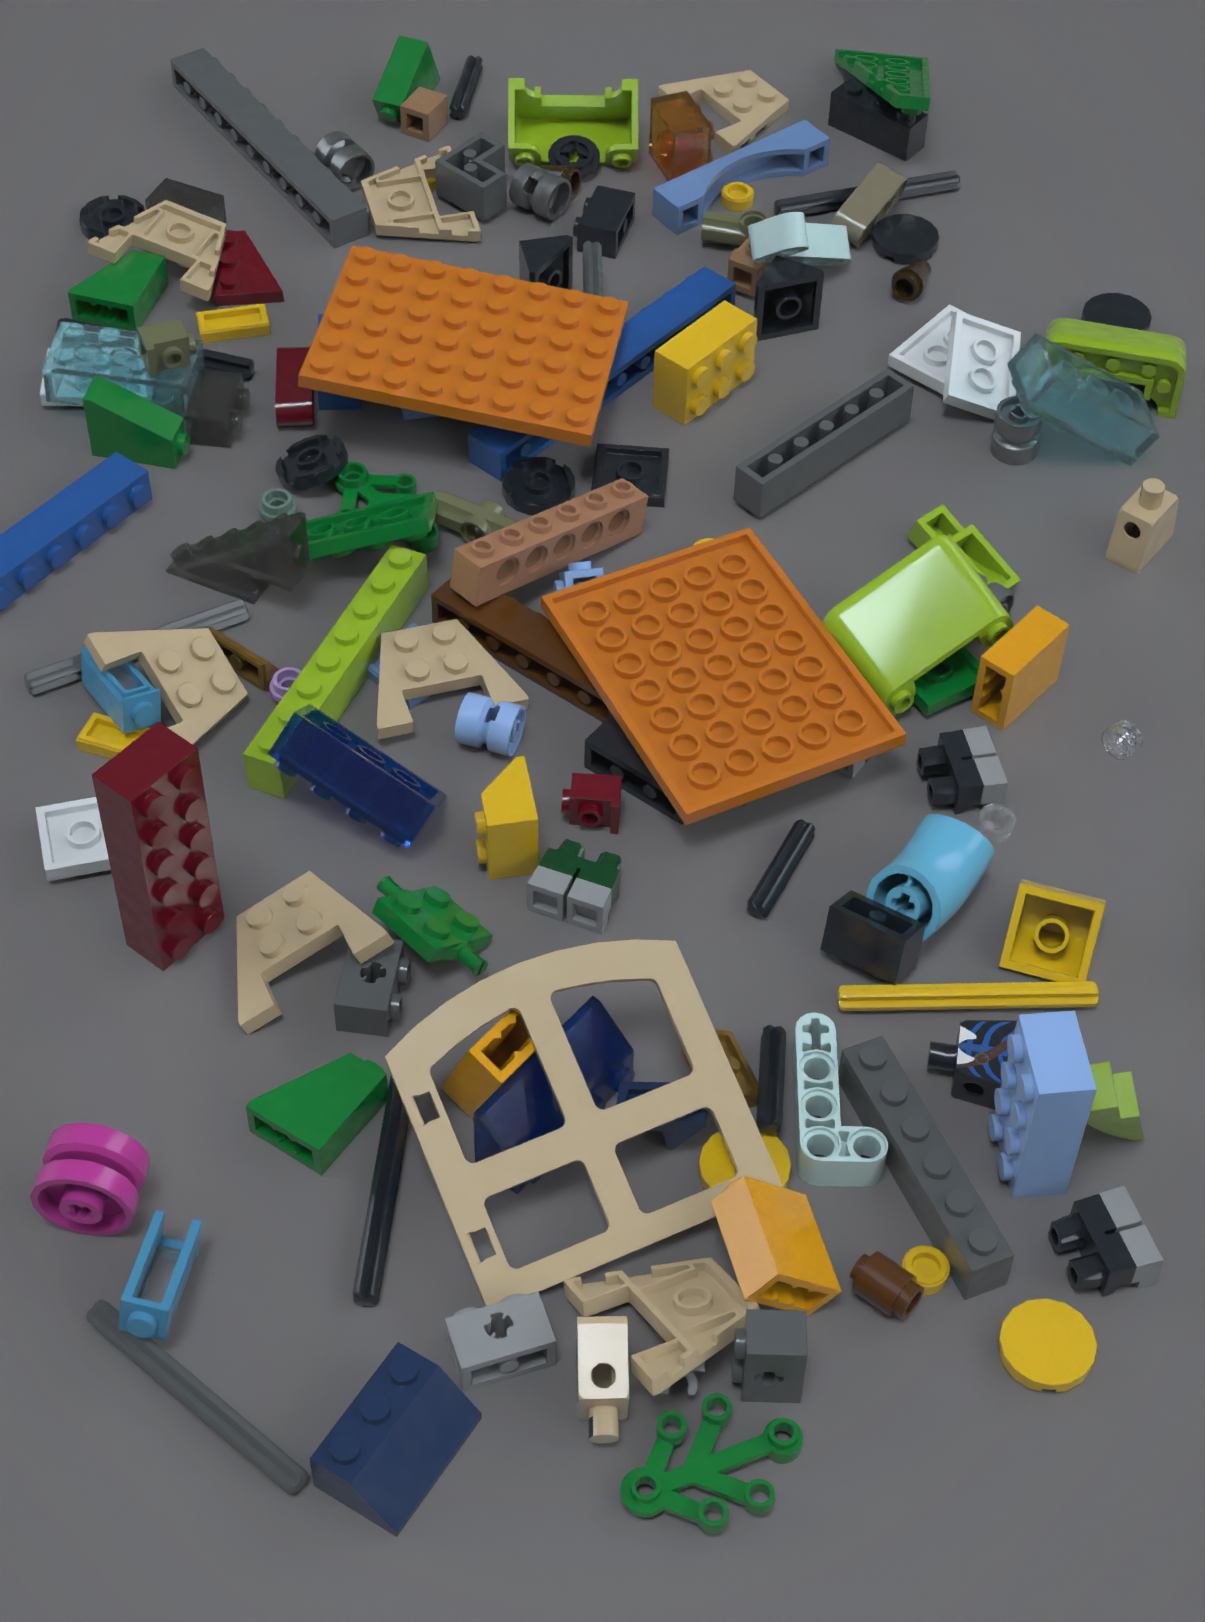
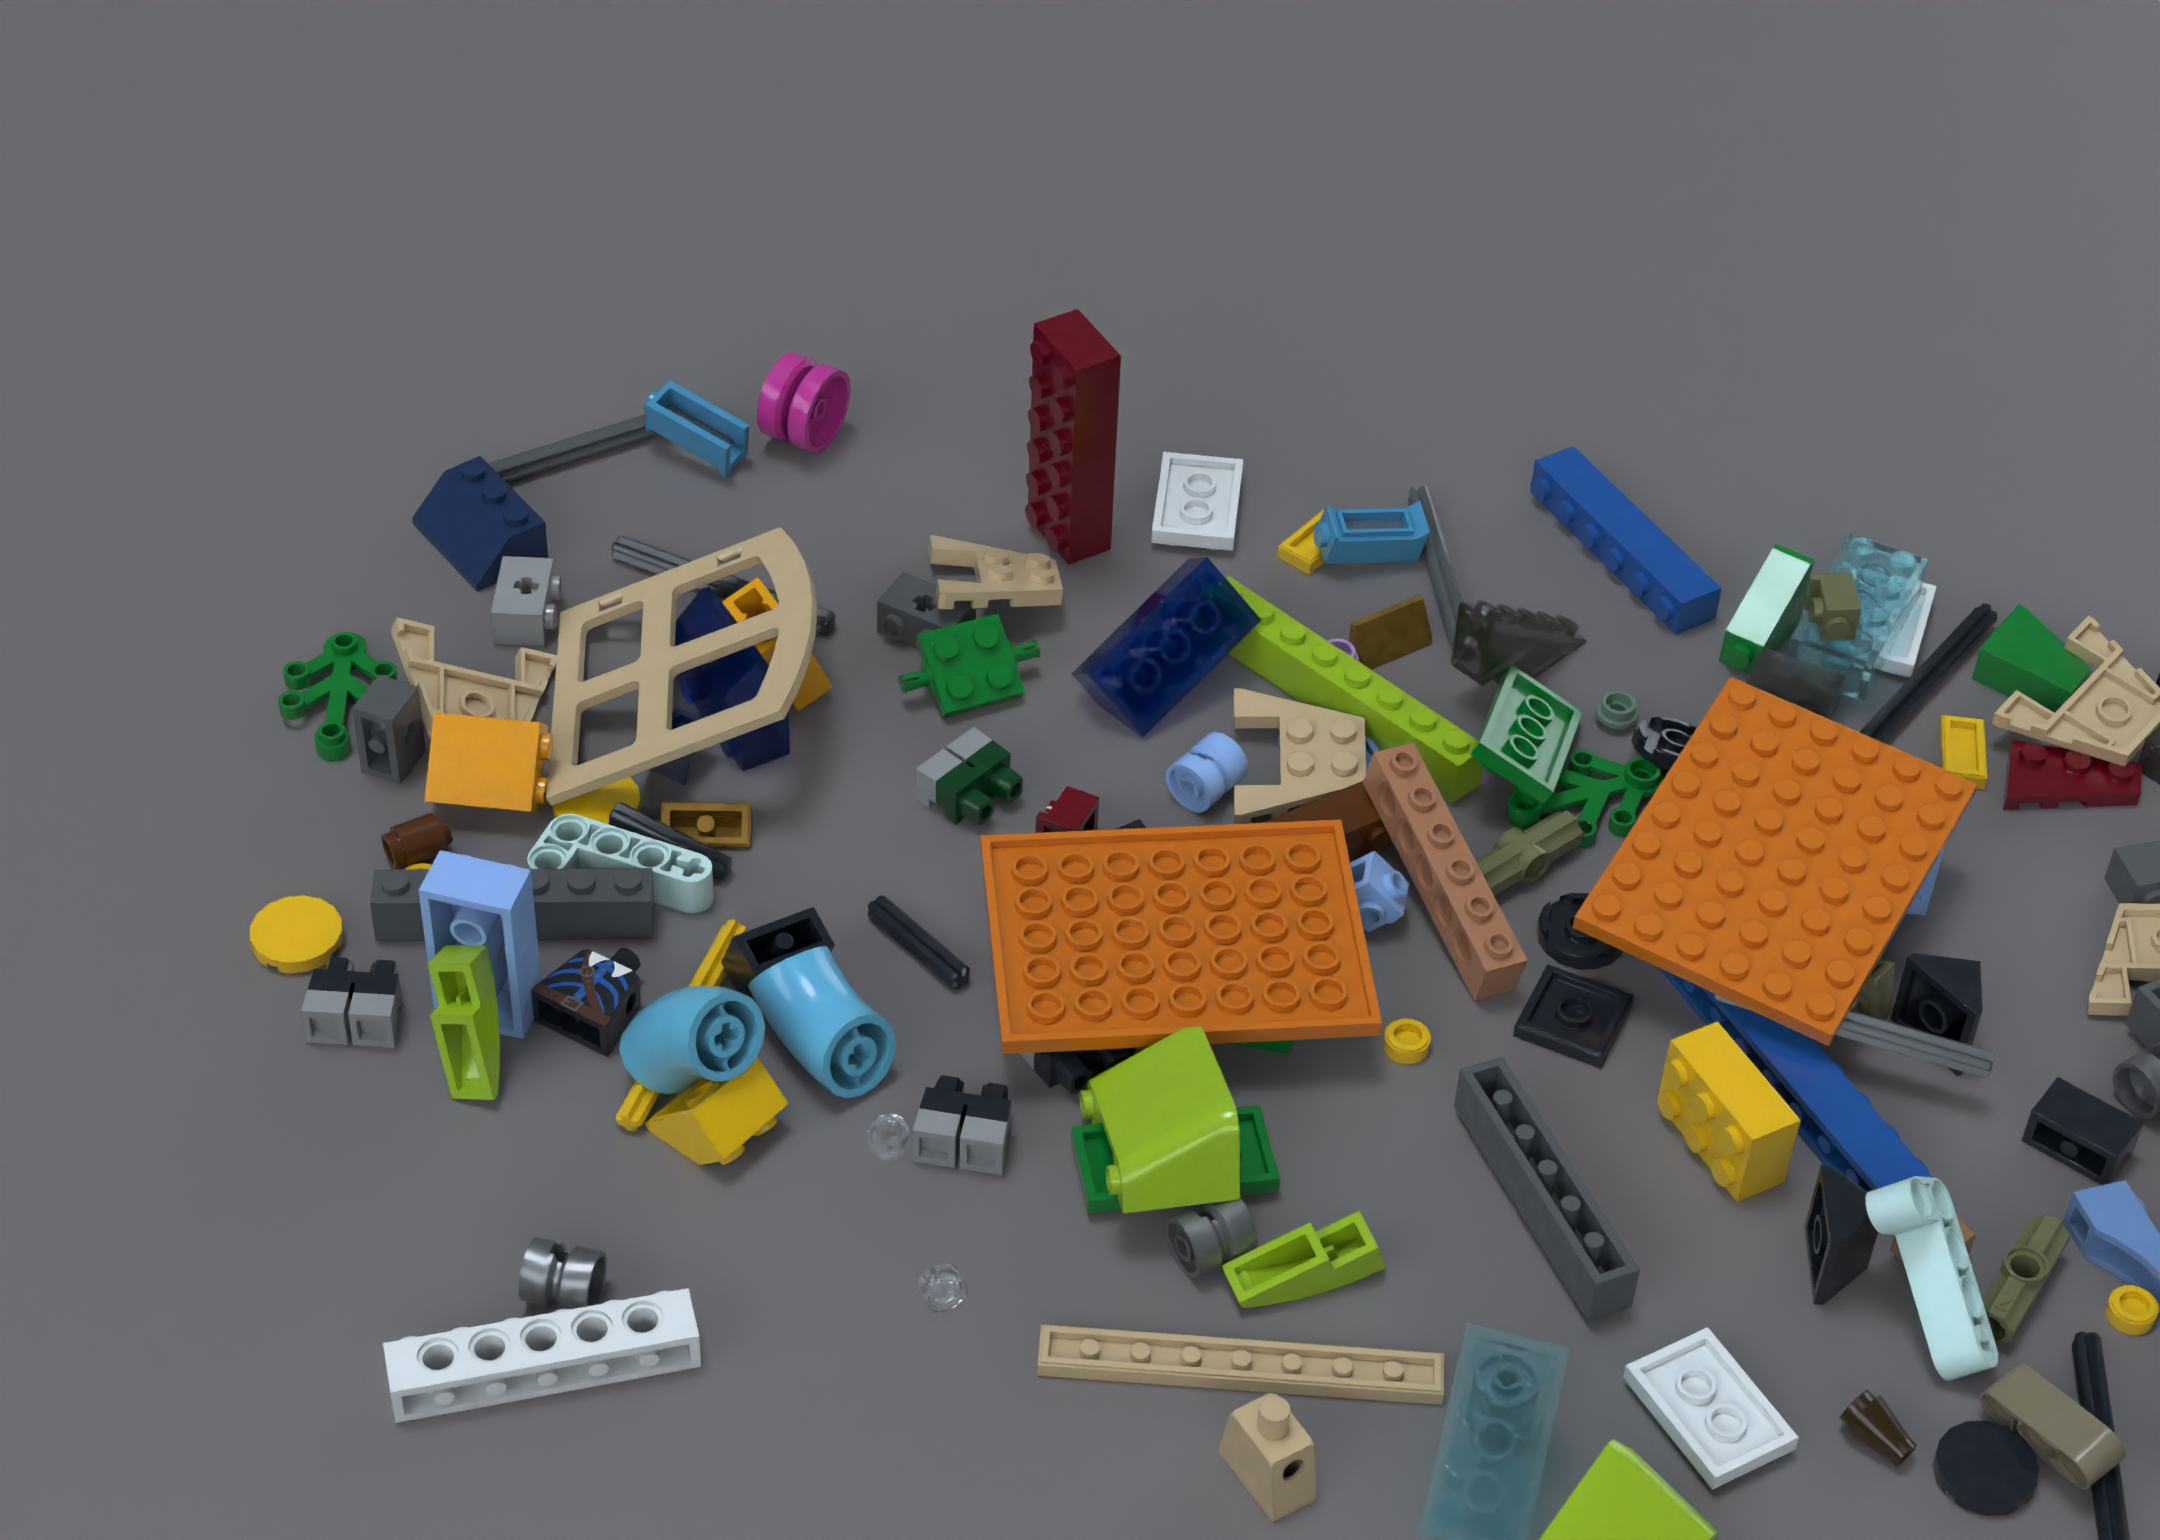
camera: 110 degrees right, 5 degrees down
(186, 668) = (1361, 576): tan wing -> none
(320, 1110) = (818, 542): green slope -> none
(508, 824) = (1058, 737): yellow slope -> none
(602, 1375) = (460, 631): tan torso -> none
(977, 364) = (1640, 1401): white plate -> none
(1019, 667) = (1075, 1210): light orange brick -> none
(1032, 930) = (692, 1037): none -> medium azure brick
(1067, 579) = (1241, 1364): none -> tan tile

